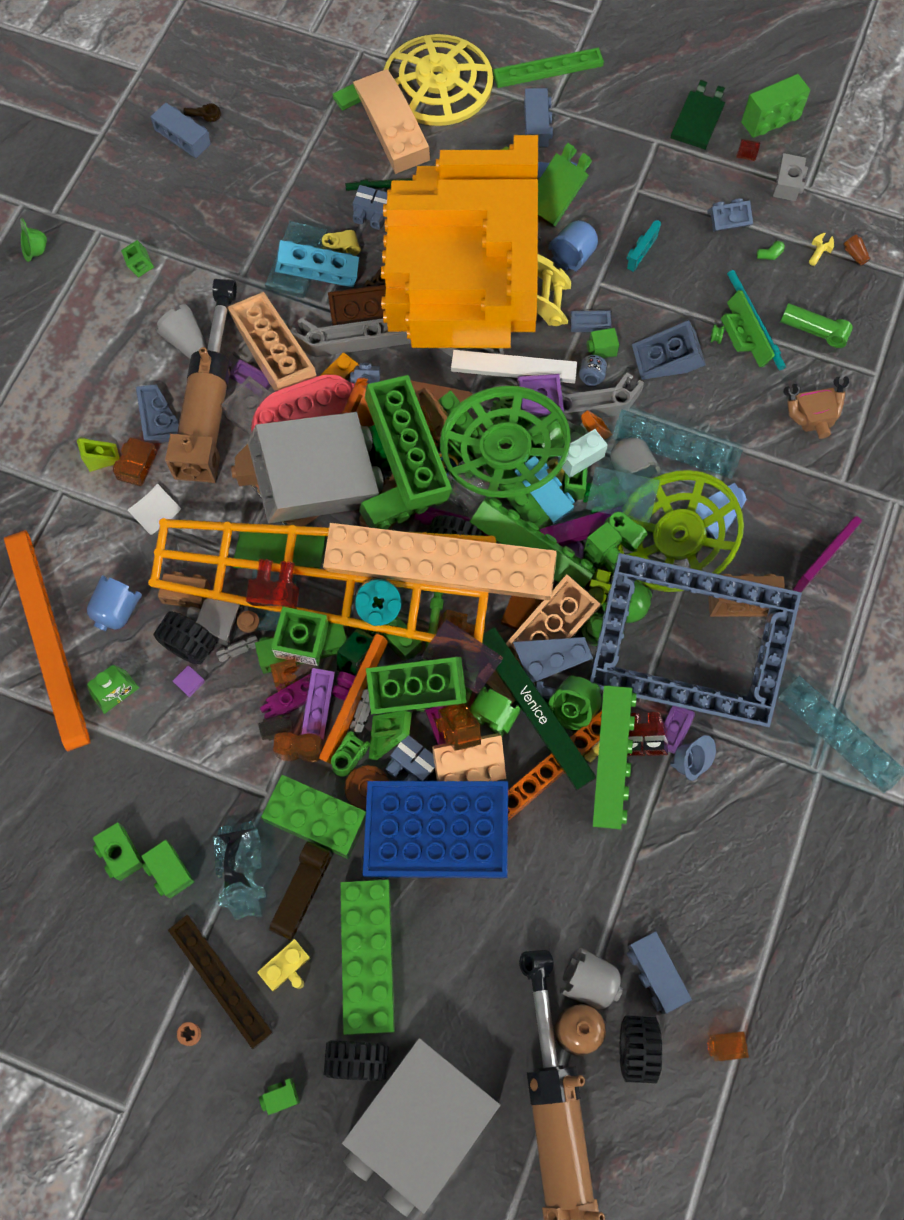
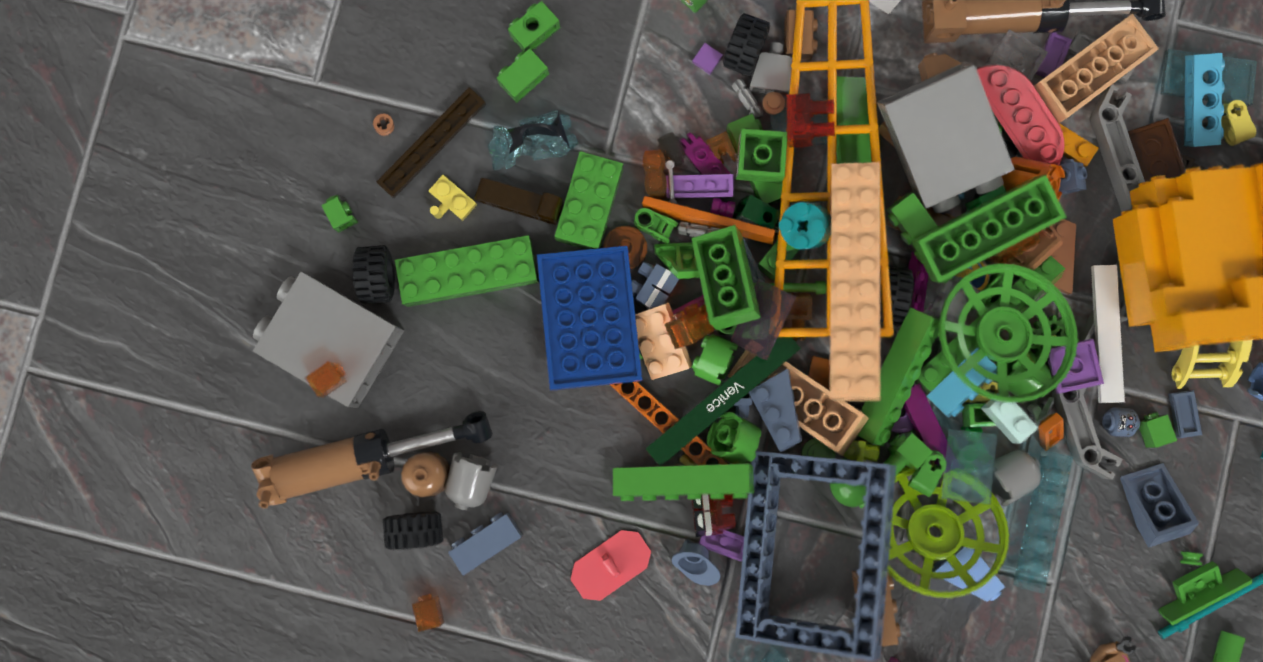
camera: 85 degrees right, 15 degrees up
(291, 729) = (670, 165): none -> light grey hinge
(467, 1122) = (326, 378): none -> clear orange brick
(689, 845) = (610, 565): none -> coral shield

